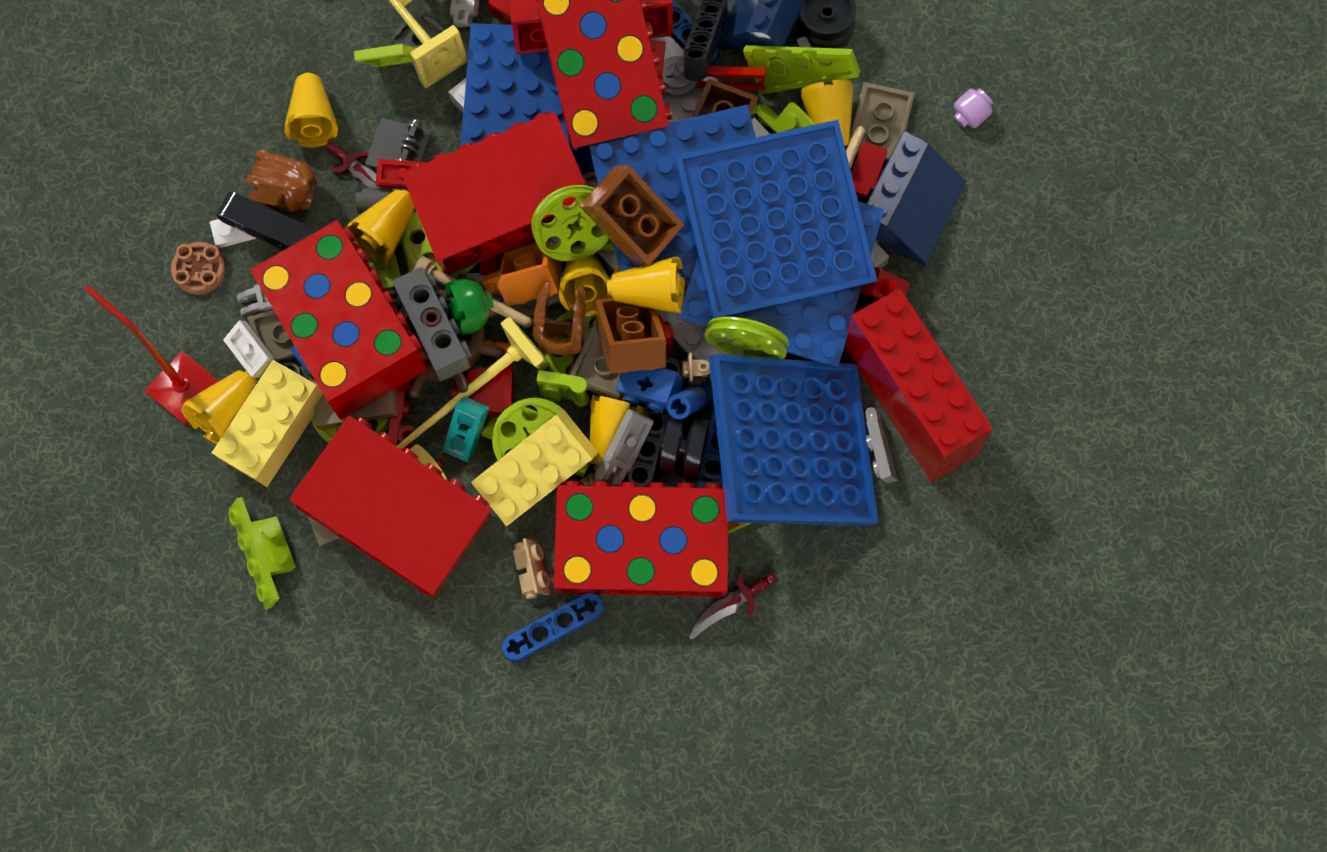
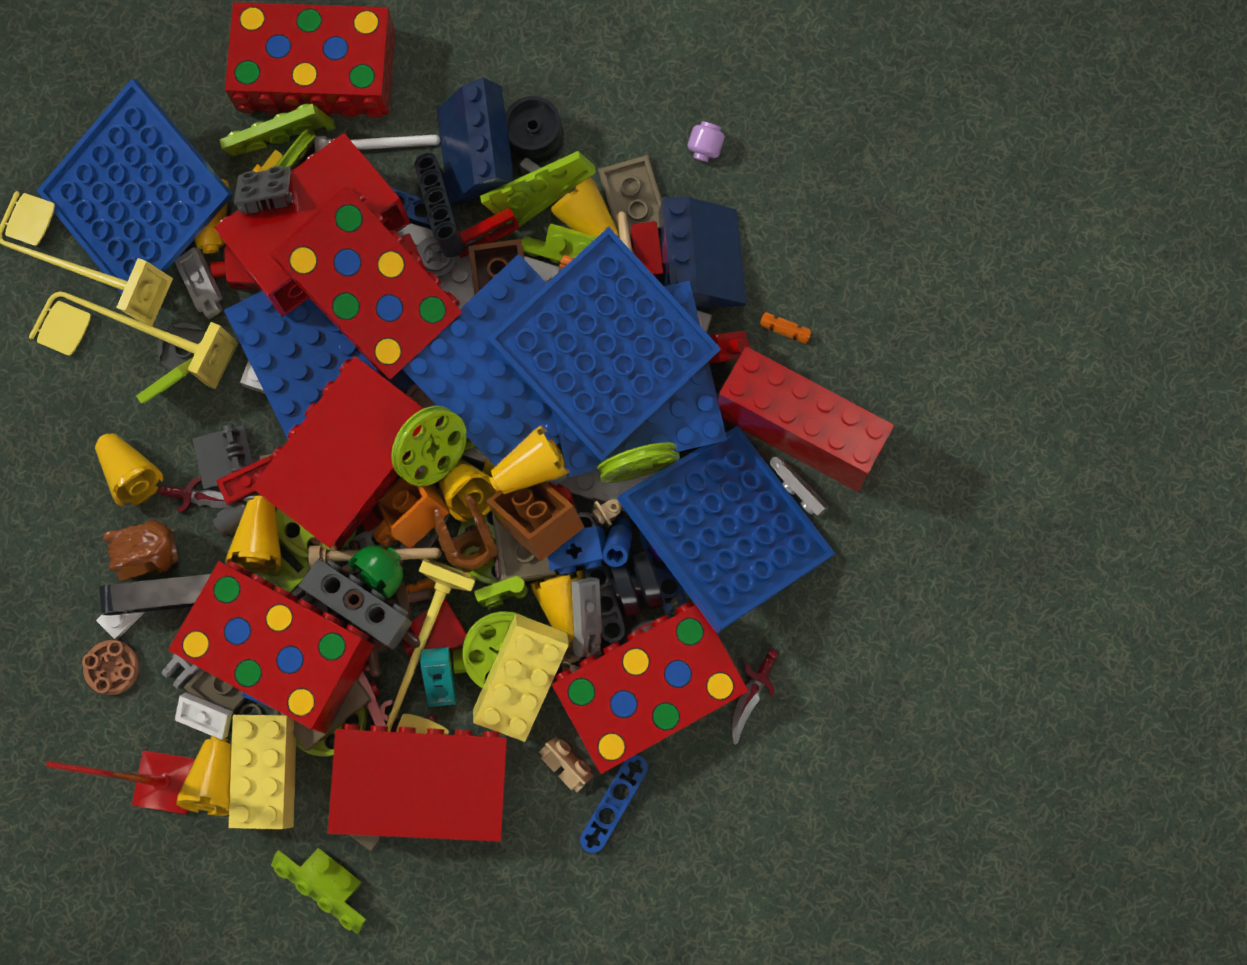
camera: 25 degrees left, 5 degrees up
(632, 215) = (479, 412): dark orange brick -> none
(949, 305) = (785, 327): none -> orange axle

